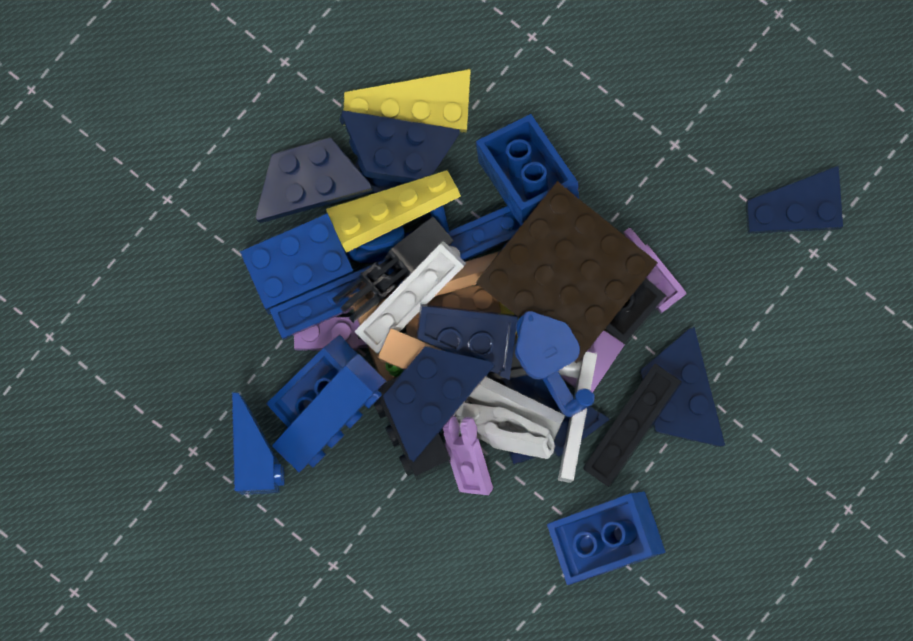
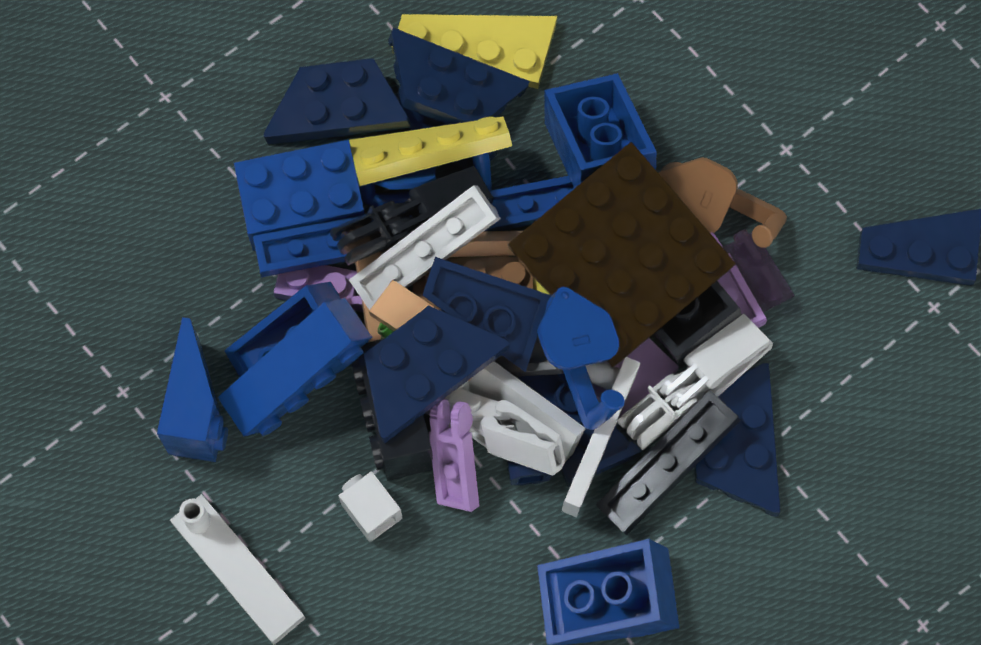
camera: 15 degrees right, 10 degrees down
(316, 575) = (237, 568): none -> white piece
(408, 506) = (369, 505): none -> white brick
(621, 197) = (710, 191): none -> medium nougat piece
(652, 342) = (713, 367): none -> white arm
(672, 252) = (759, 271): none -> clear purple hinge

